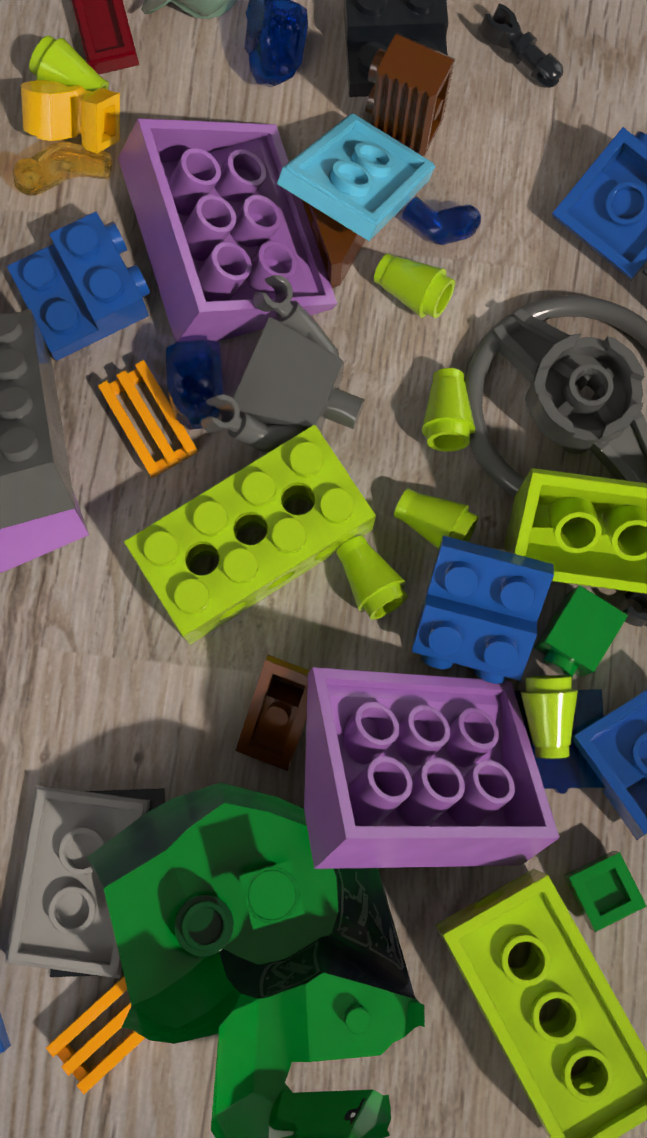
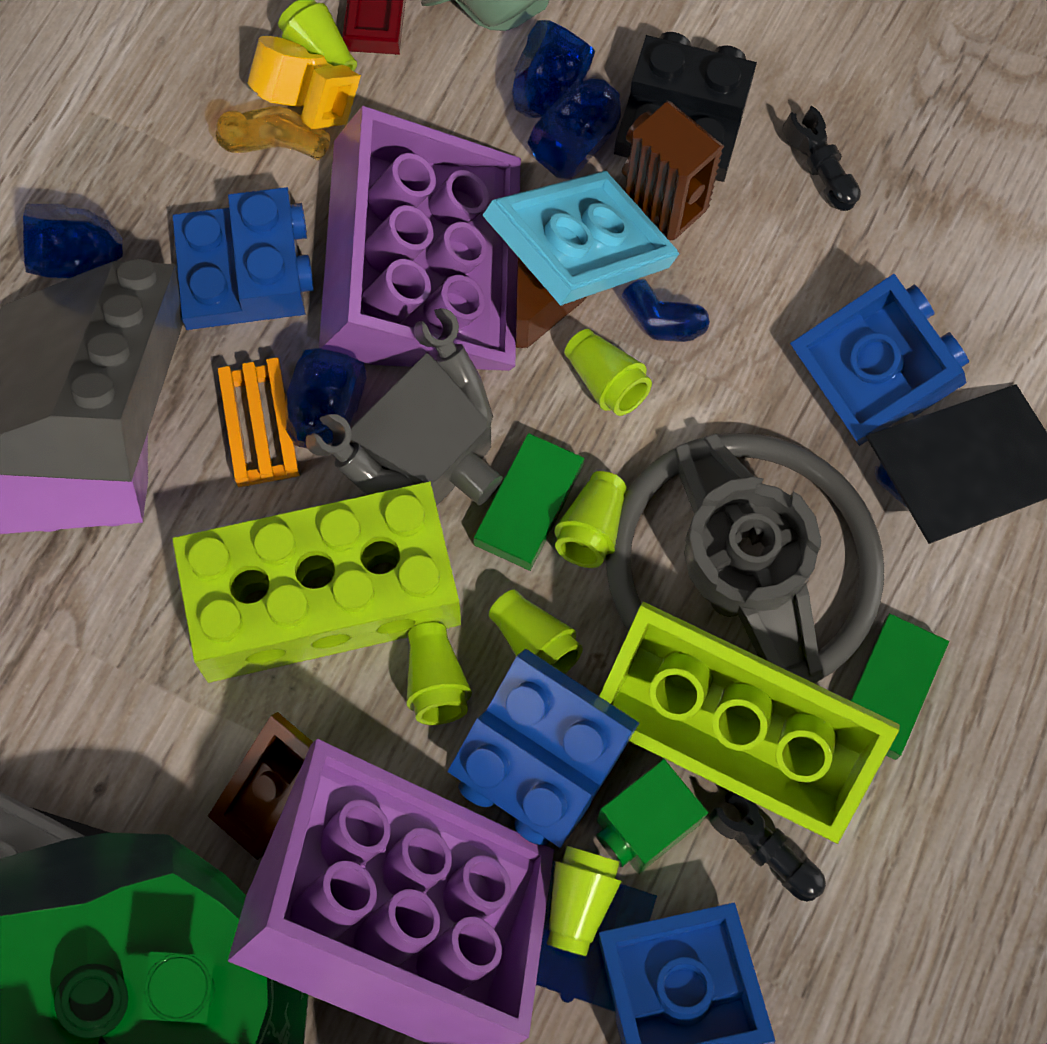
camera: 20 degrees right, 10 degrees down
(315, 82) = (576, 127): none -> clear blue rock
(391, 412) = (529, 501): none -> green tile

